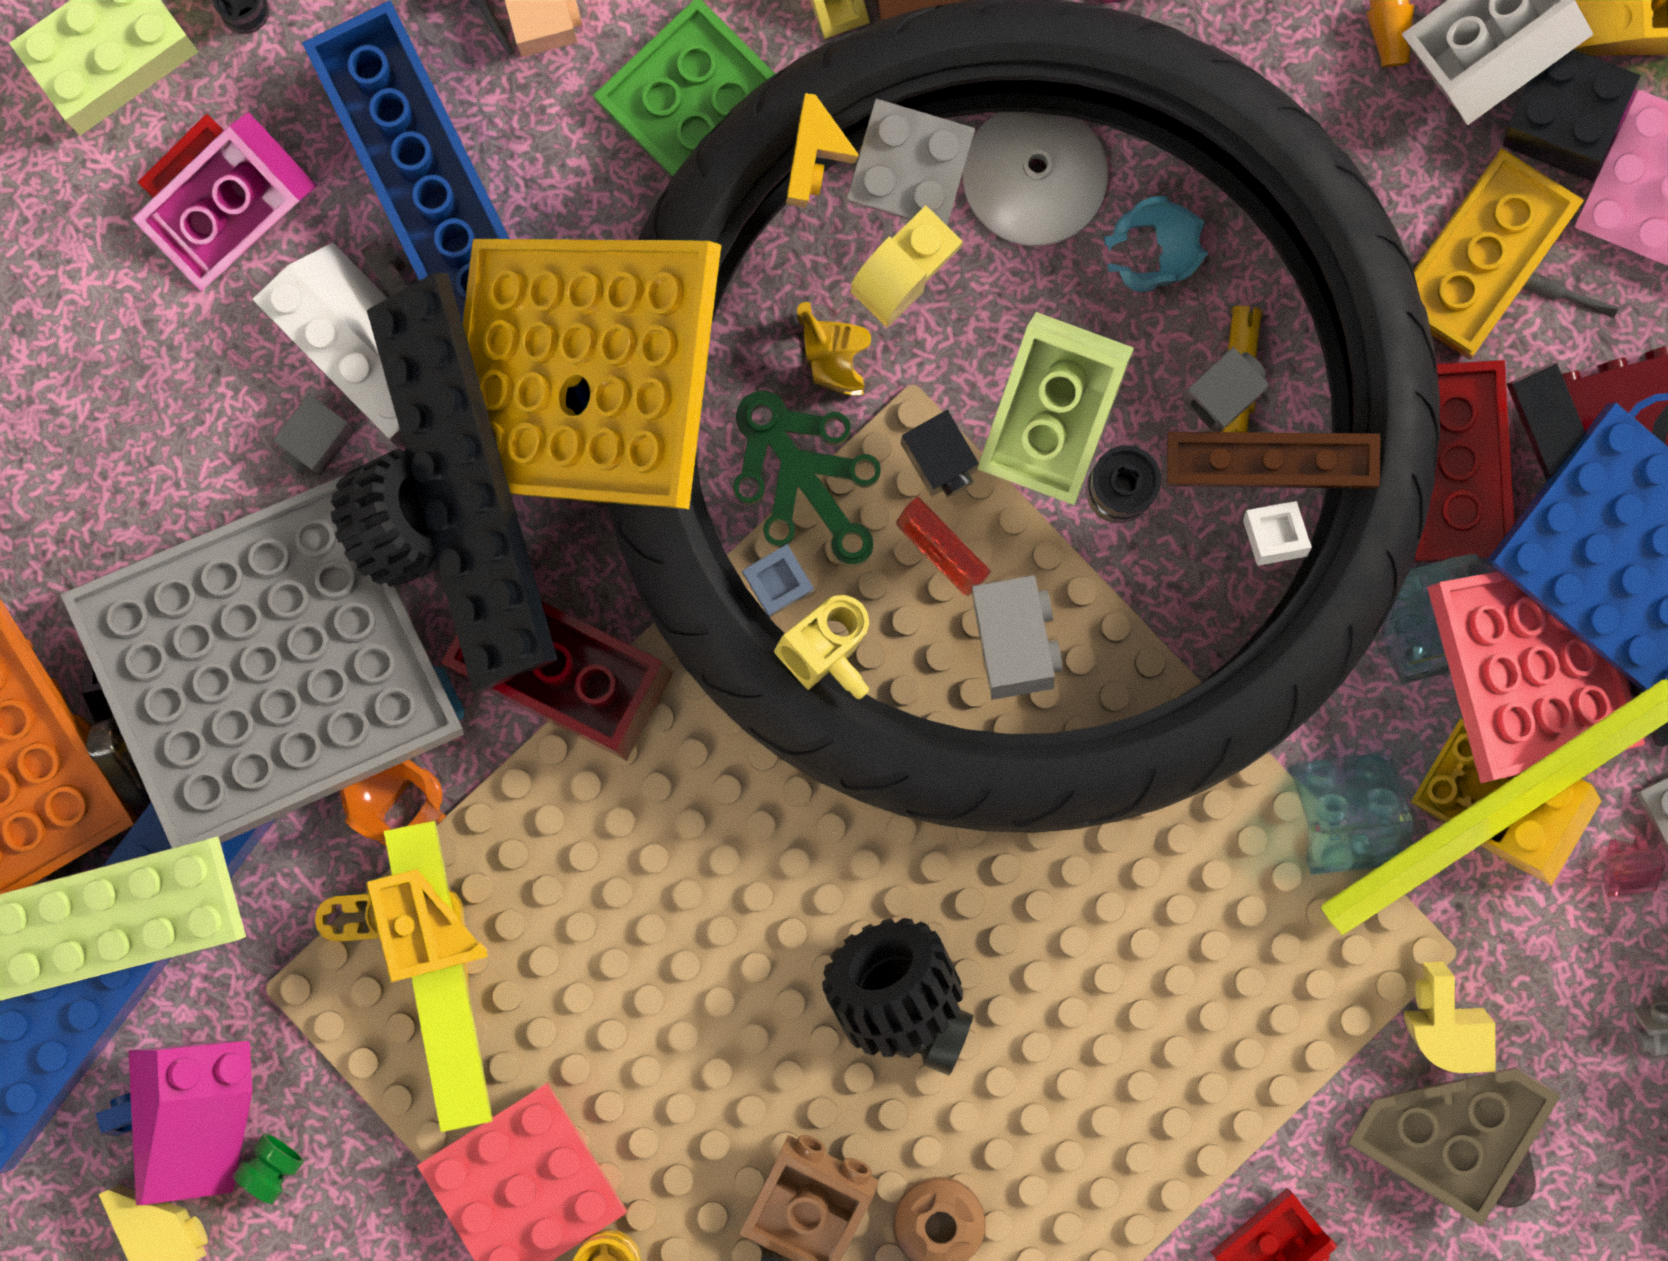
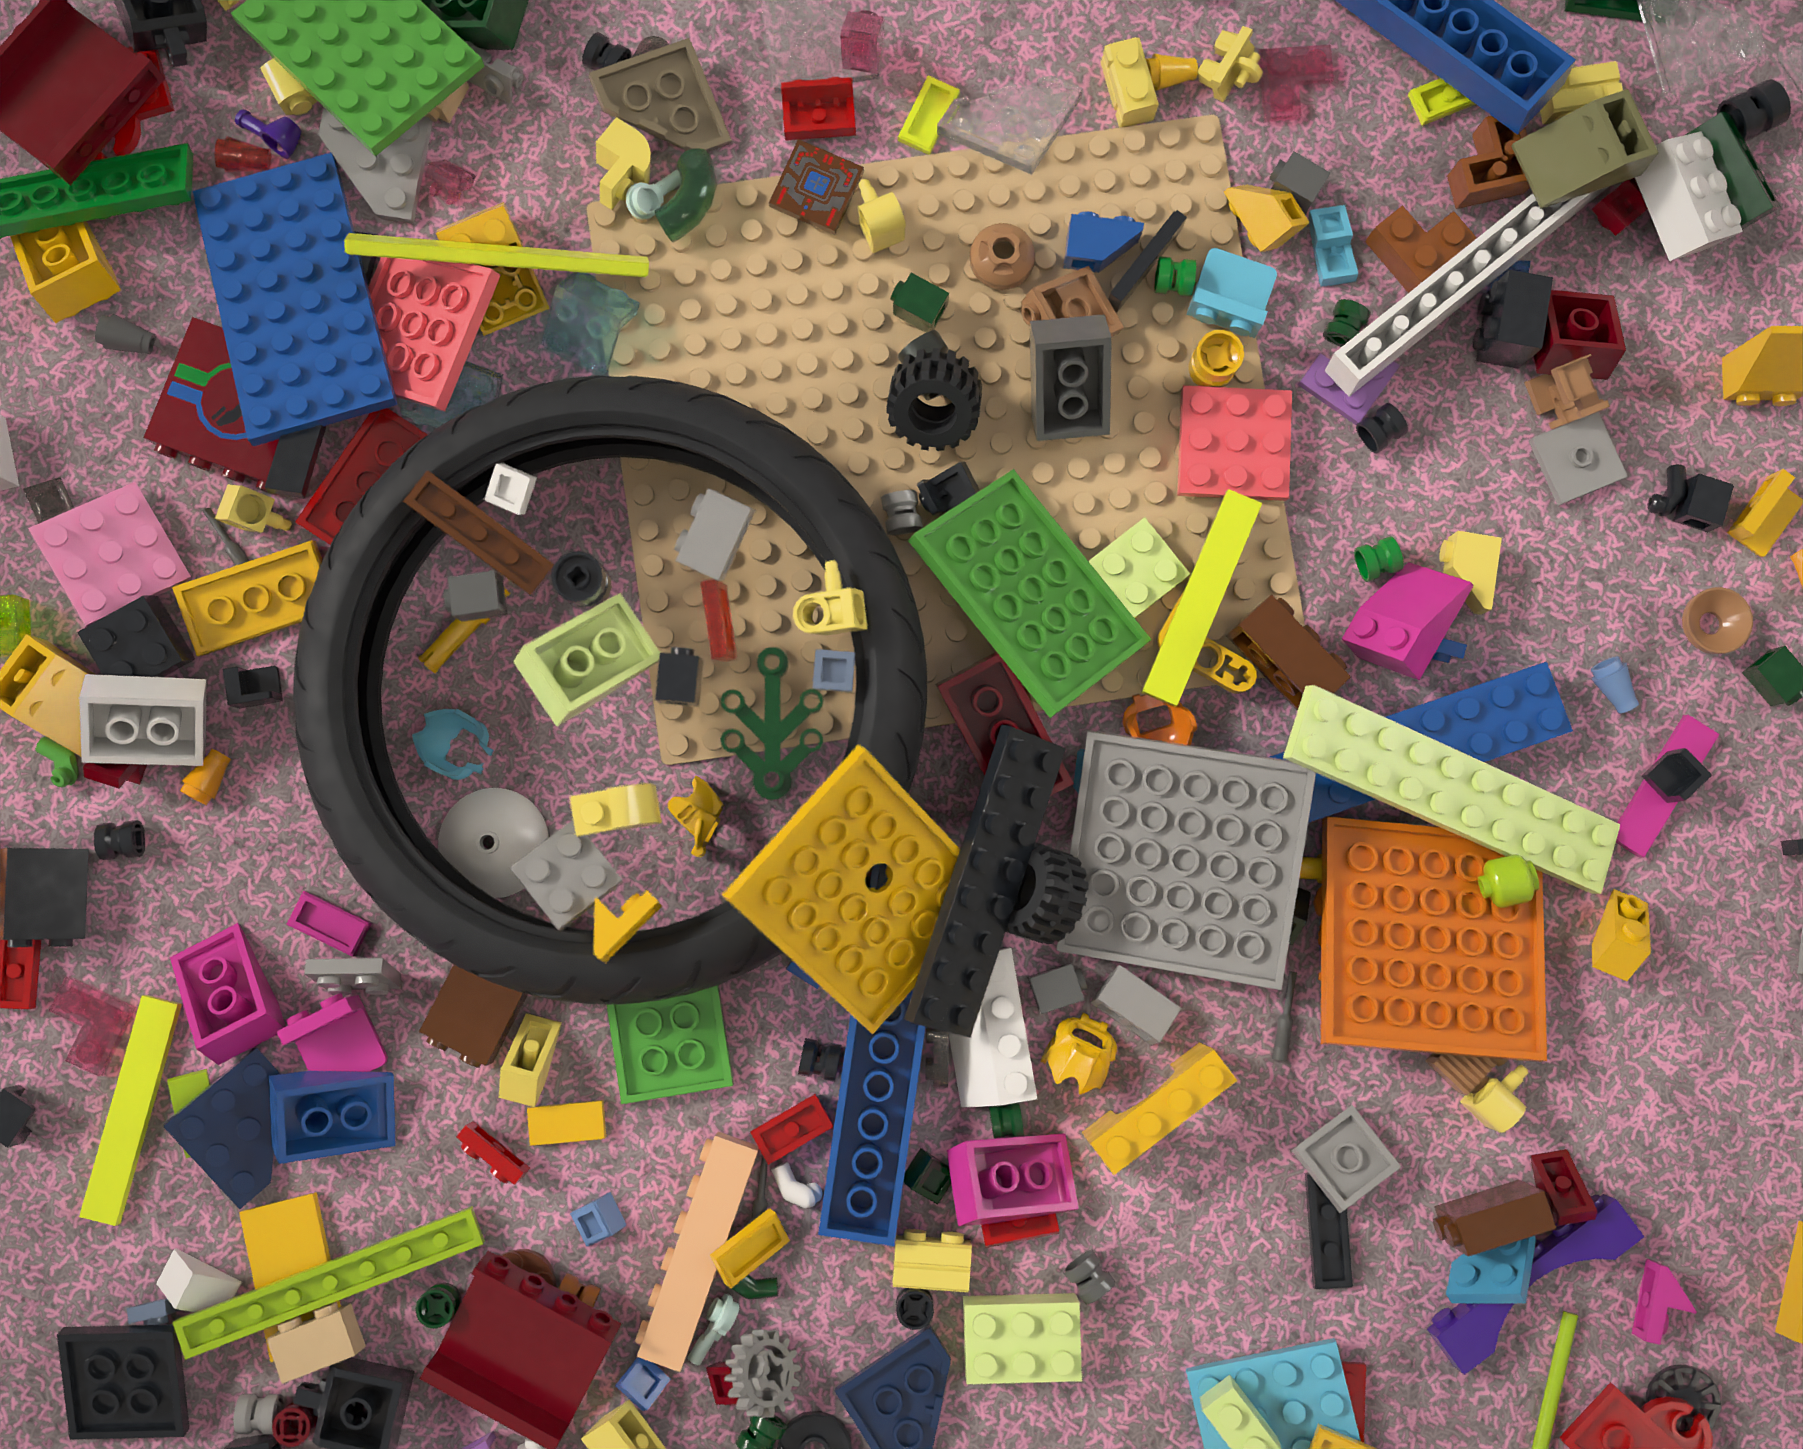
camera: 145 degrees left, 0 degrees up
(37, 572) = (1285, 1022): none -> dark grey piece
(74, 158) = (1089, 1277): none -> dark grey wheel
(88, 424) = (1195, 1082): none -> yellow arch
(112, 755) = (1314, 862): clear smoke plate -> none
(213, 477) = (1136, 1005): none -> light grey hinge
(237, 373) = (1076, 1058): none -> yellow helmet
(253, 61) = (932, 1261): none -> light yellow brick
(270, 256) = (1006, 1120): none -> dark green wheel
(296, 977) = (1287, 651): none -> reddish brown brick
(320, 146) = (928, 1176): none -> dark green slope
(417, 927) = (1195, 629): yellow wing -> none
(452, 34) = (794, 1191): none -> white arm
(498, 95) = (792, 1129): none -> red plate
(508, 191) = (828, 1062): none -> black wheel
(534, 963) = (1139, 567): none -> yellowish green plate
(633, 842) = (1030, 591): none -> bright green plate
(755, 1120) = (1070, 377): none -> dark grey brick
(809, 900) = (947, 489): none -> black bracket
(852, 846) = (901, 512): none -> light grey wheel
(994, 1097) = (919, 302): none -> dark green brick
(1109, 1164) = (880, 218): none -> light yellow piece
(1209, 1154) = (816, 187): none -> reddish brown tile
(1339, 1041) = (693, 197): none -> clear green cylinder
(1391, 999) = (645, 198): none -> light aqua plate
(1416, 157) = (252, 687): none -> black panel
(1565, 338) = (249, 510): none -> light yellow piece
(1565, 1141) = (602, 53): none -> black wheel

